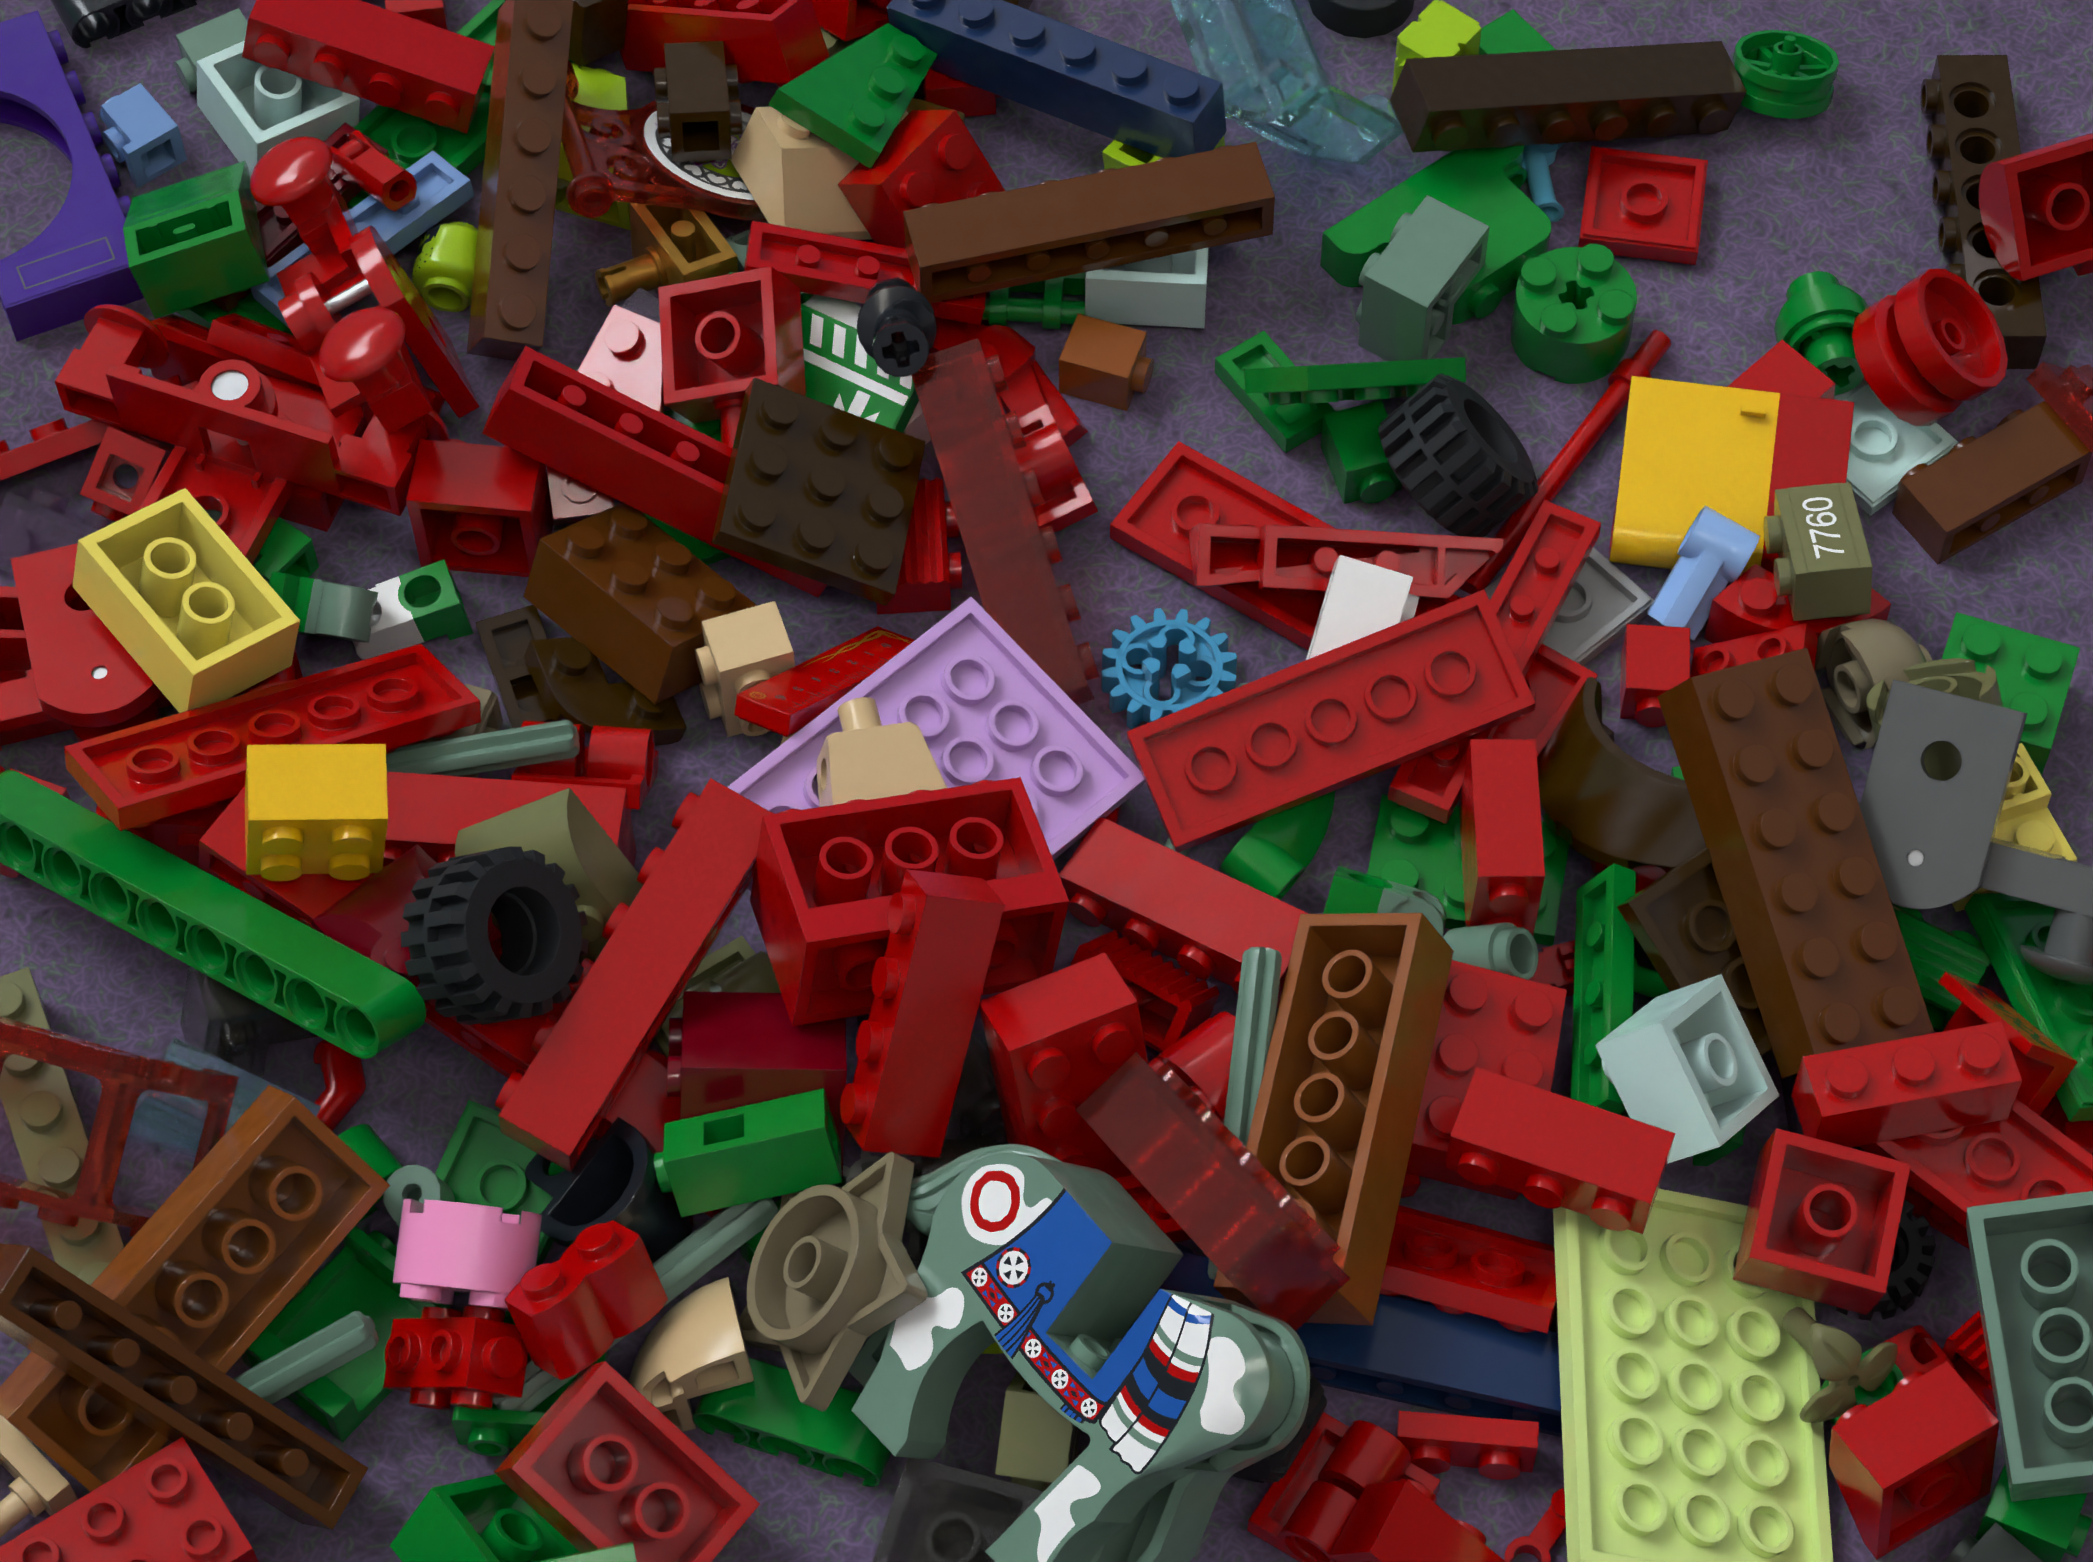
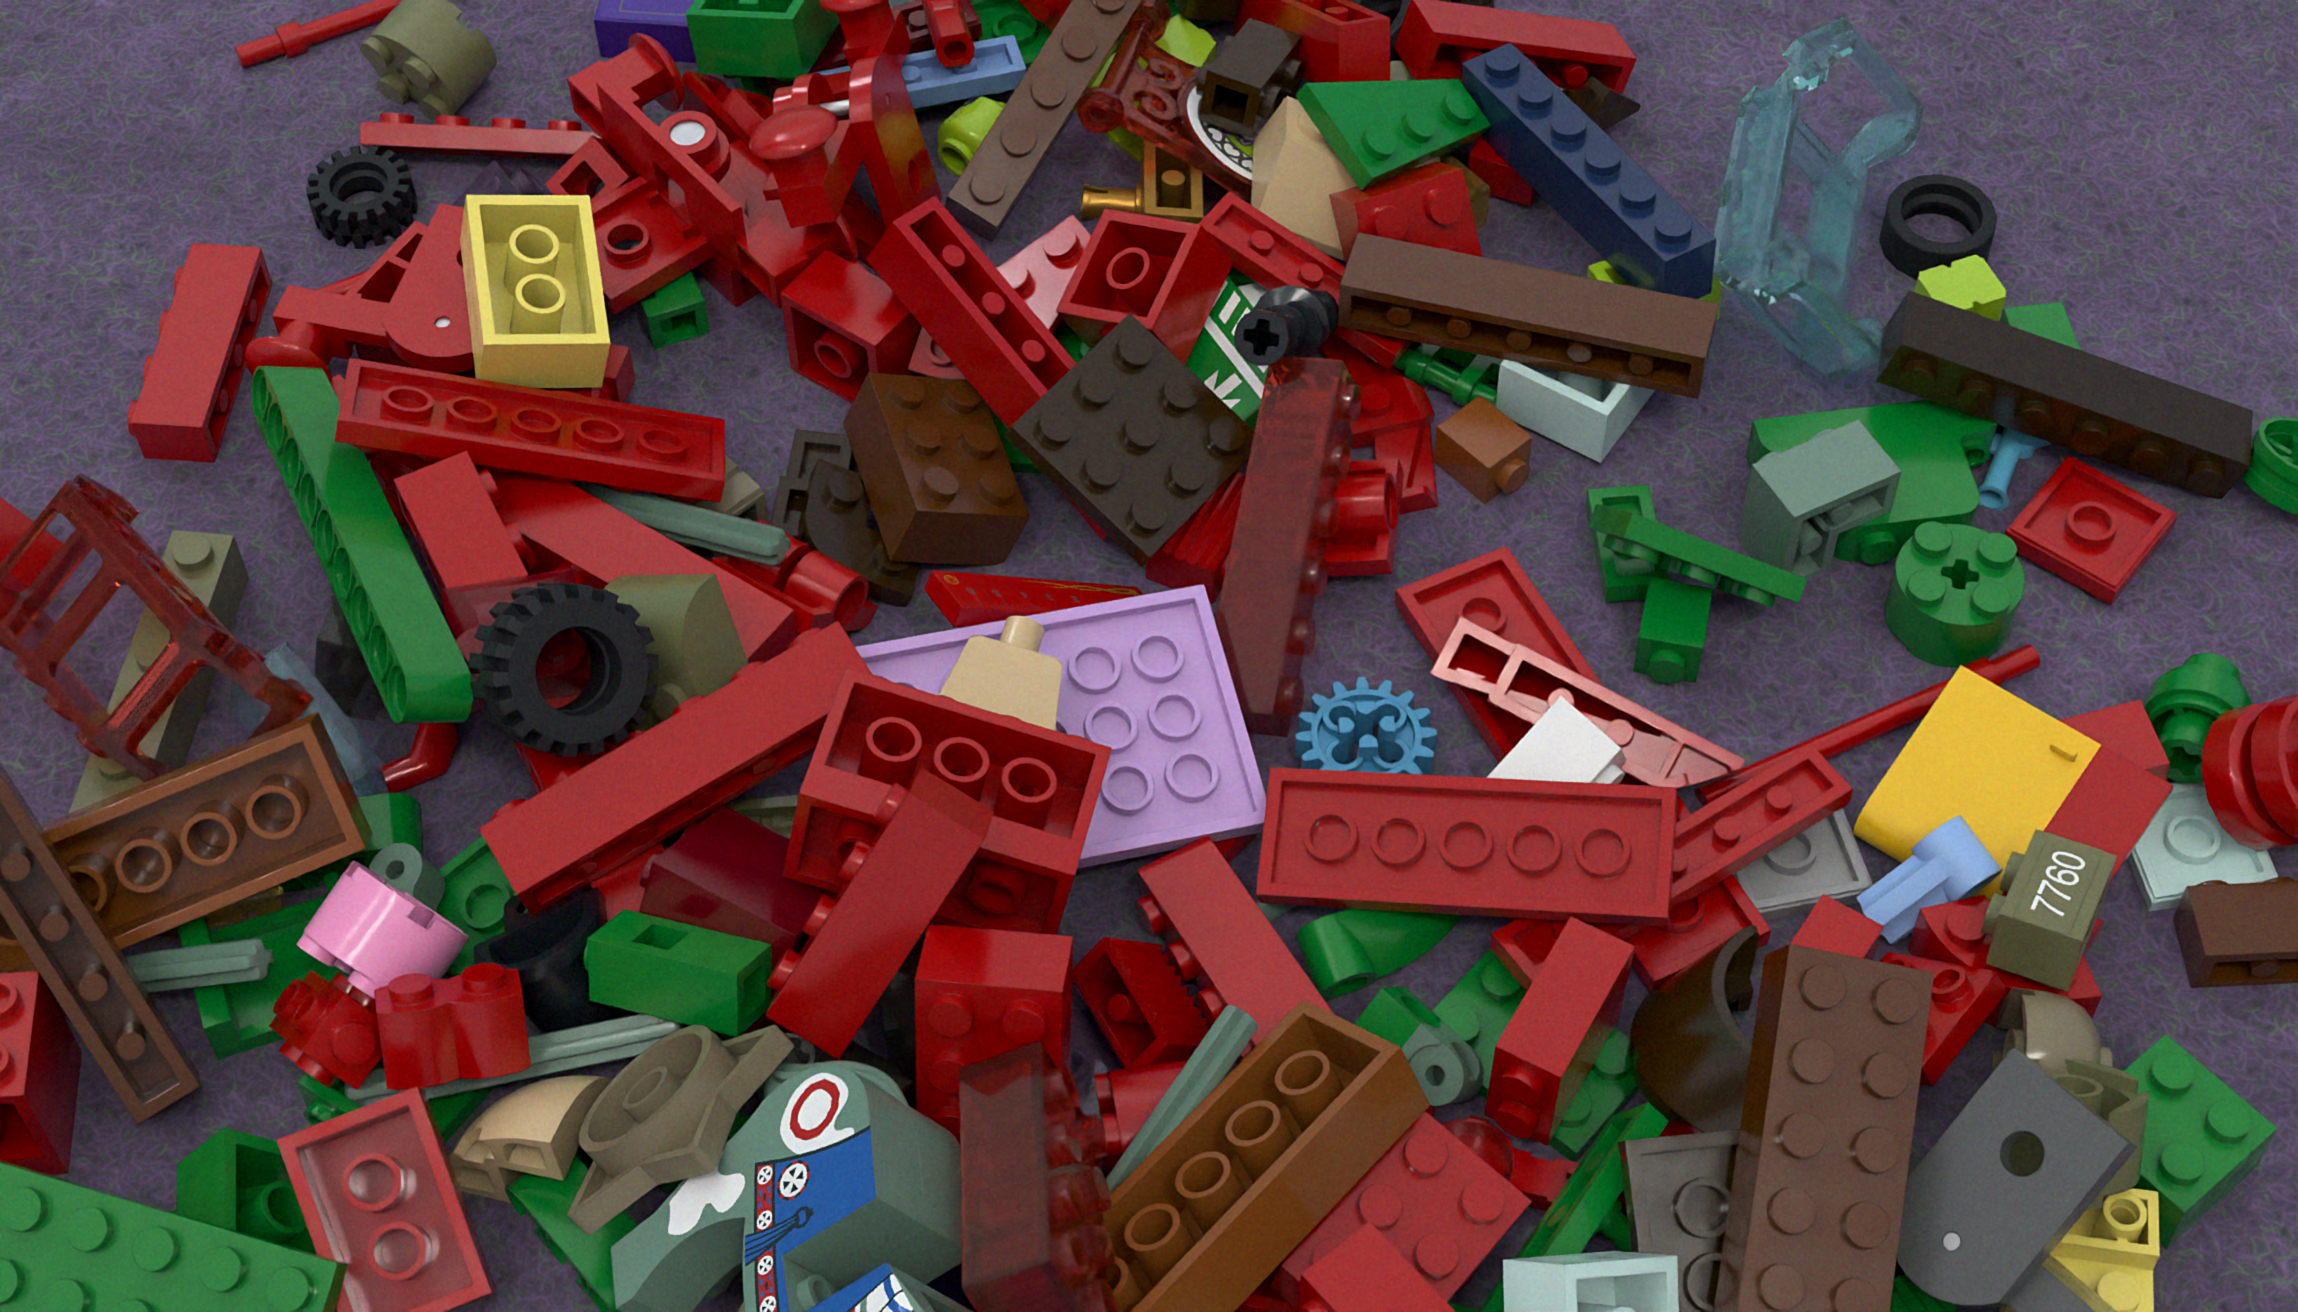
camera: 30 degrees right, 5 degrees down
(315, 810) = (485, 491): yellow brick -> none
(327, 607) = (669, 356): sand green leg -> none
(415, 611) = (750, 395): leg -> none
(737, 655) = (985, 541): tan brick -> none
(1458, 457) = (1748, 668): black tyre -> none
(1496, 948) = (1489, 1130): sand green brick -> none

